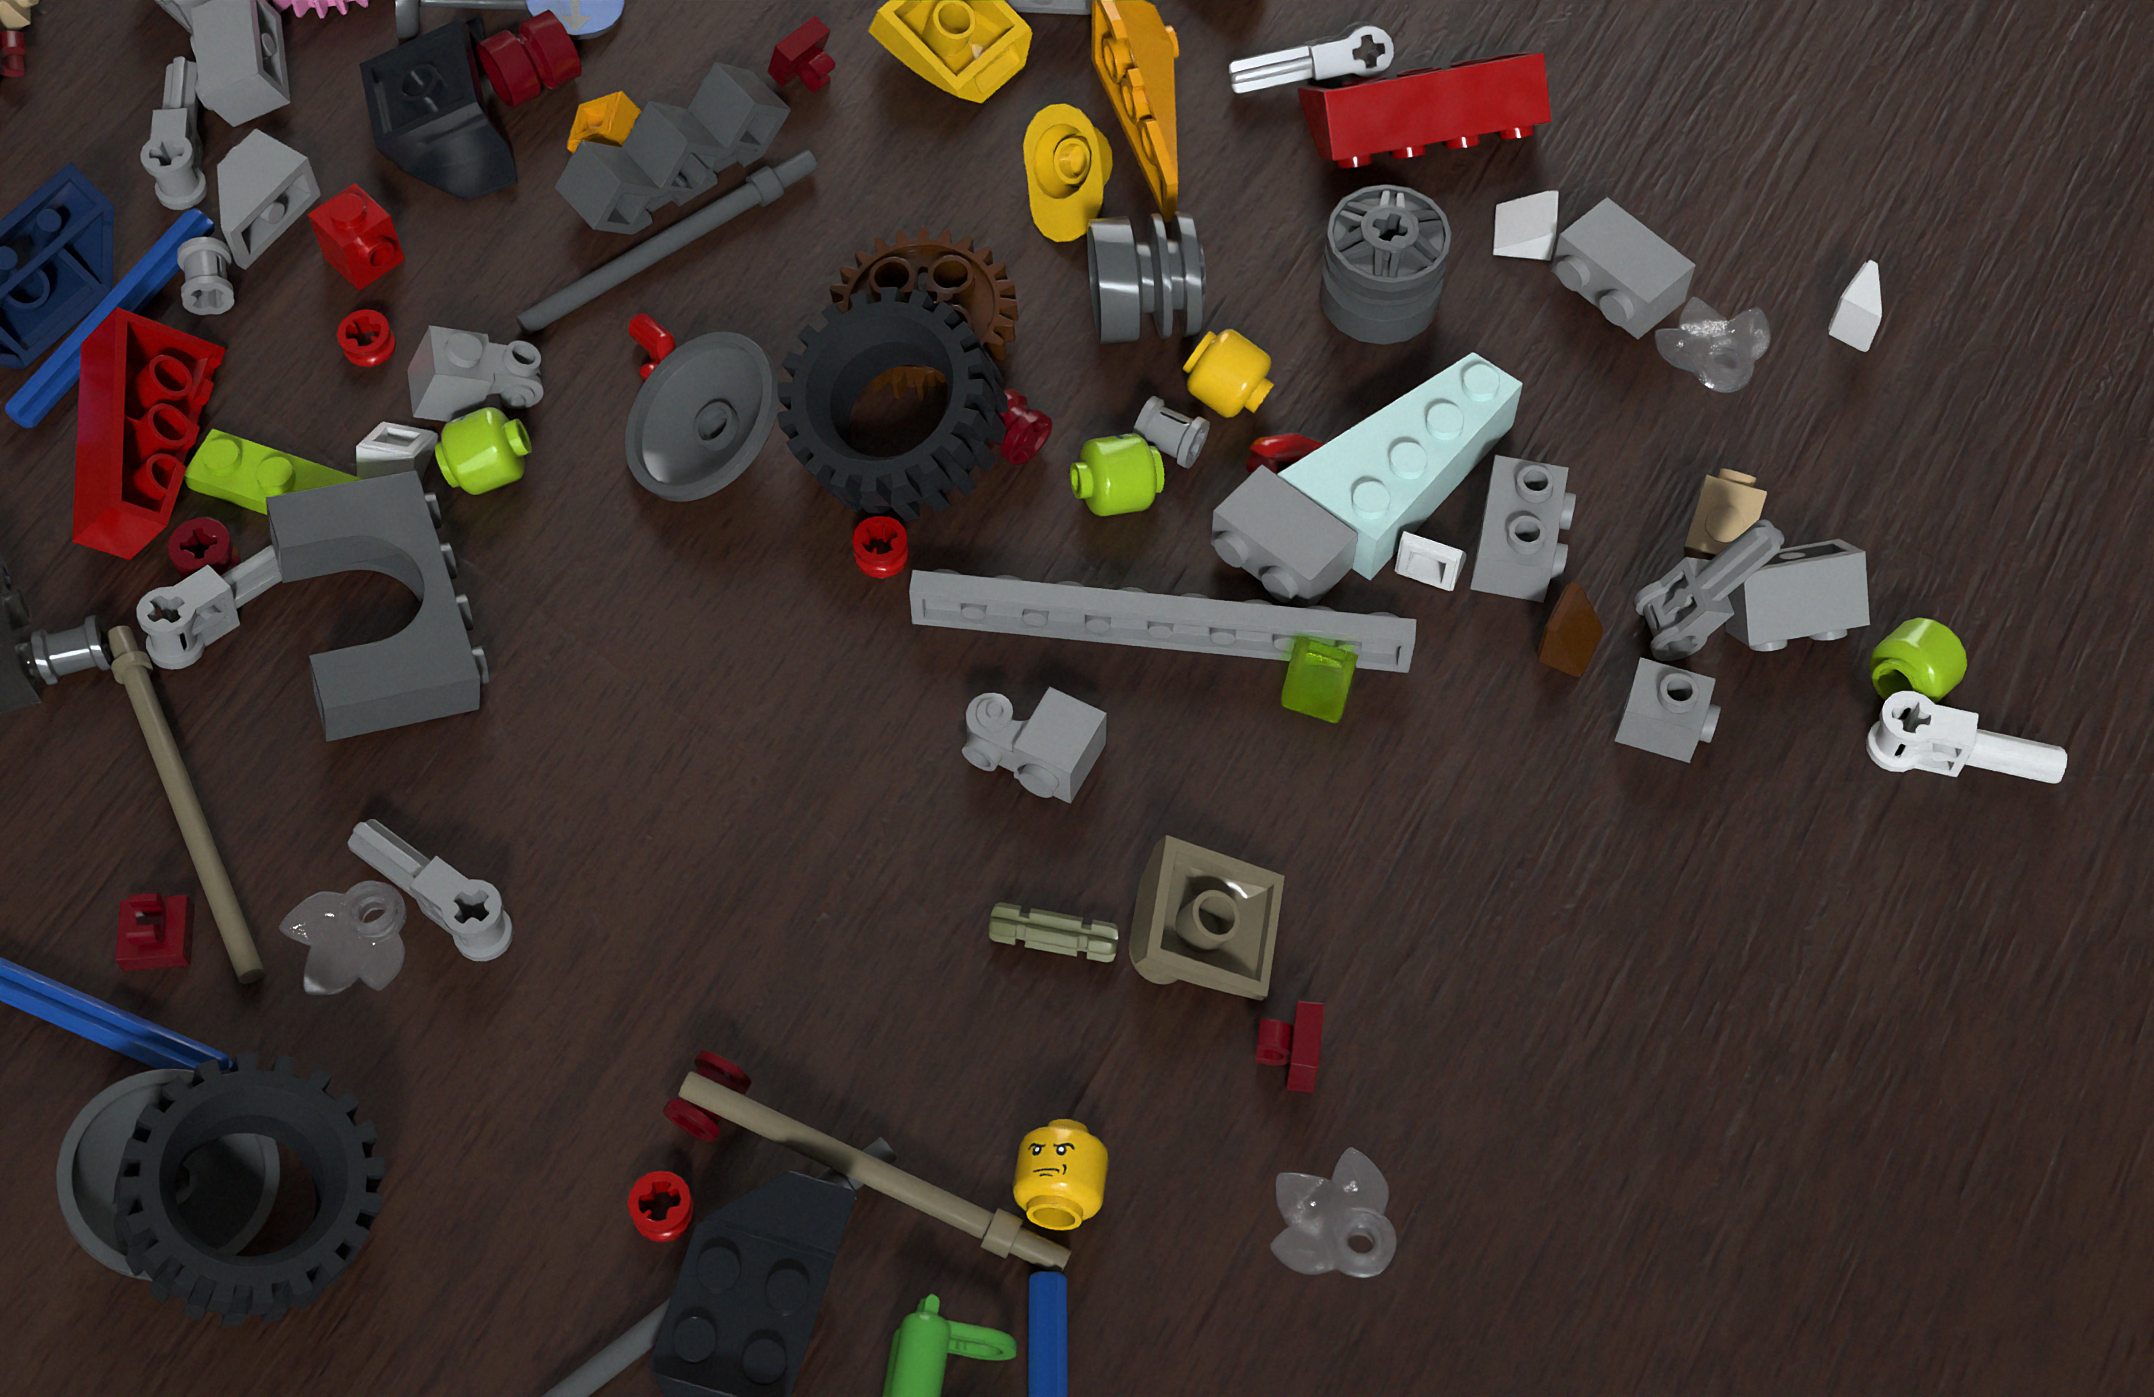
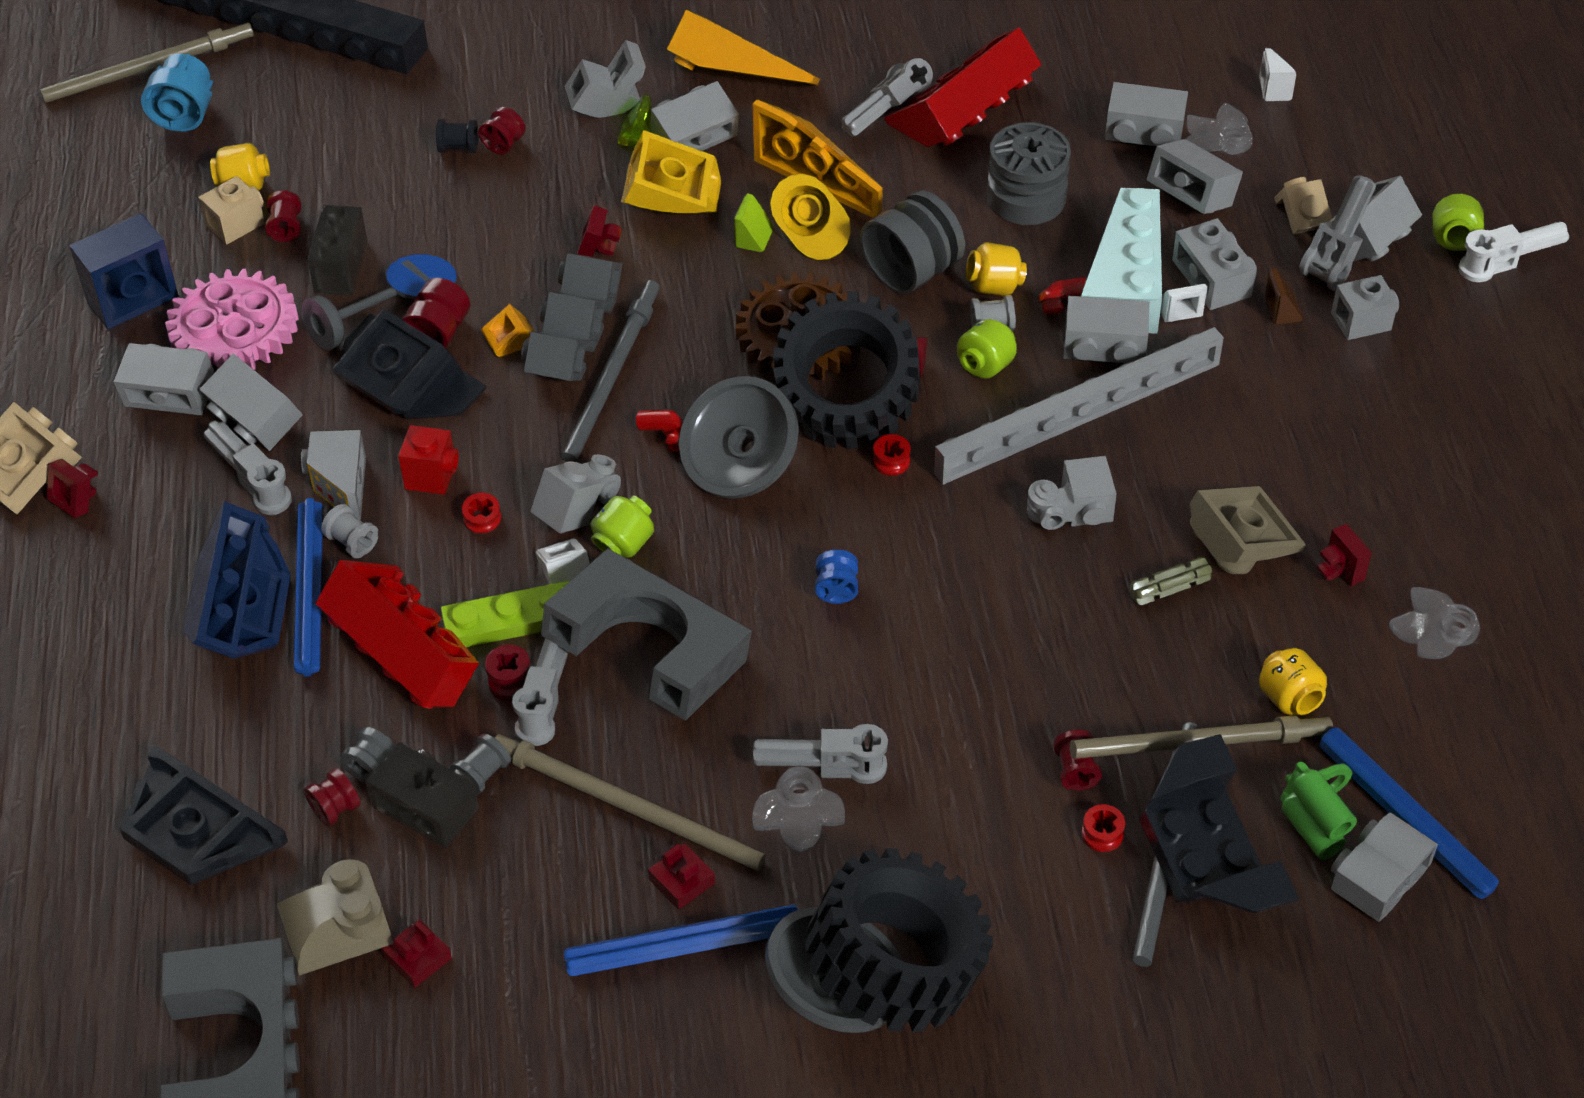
camera: 35 degrees left, 10 degrees down
(659, 667) = (836, 576): none -> blue wheel
(994, 144) = (752, 225): none -> lime slope
(1319, 679) = (1185, 387): clear neon green slope -> none
(1526, 226) = (1075, 121): white slope -> none
(1604, 390) = (1194, 176): none -> light grey brick

